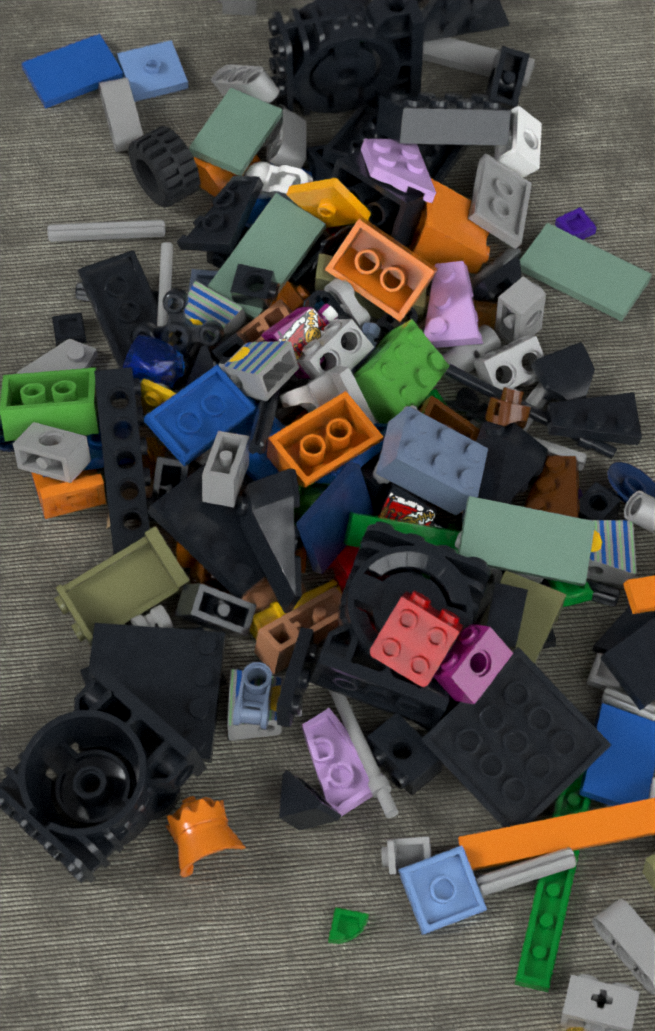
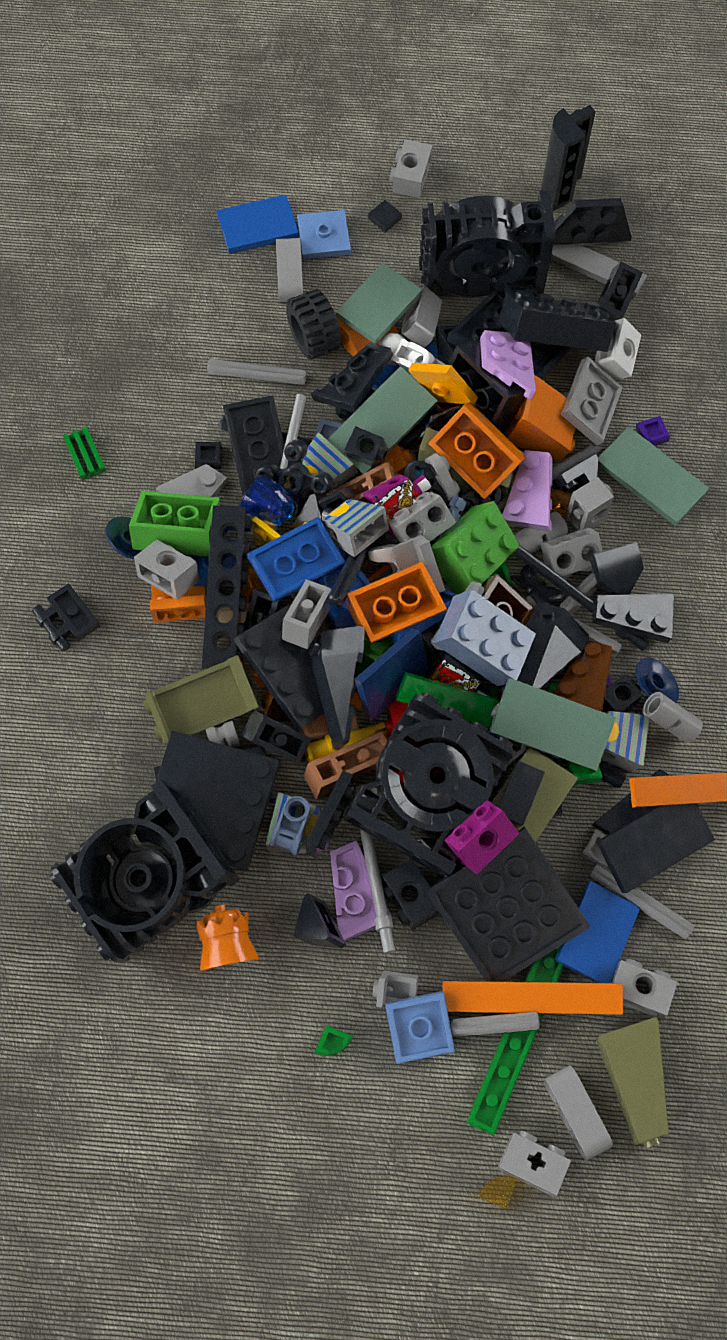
camera: 10 degrees right, 10 degrees up
(219, 40) = (384, 216): none -> black tile
(246, 79) = (397, 258): light grey beam -> none
(416, 638) = (437, 807): bracket -> none
(508, 408) = (563, 595): reddish brown piece -> none

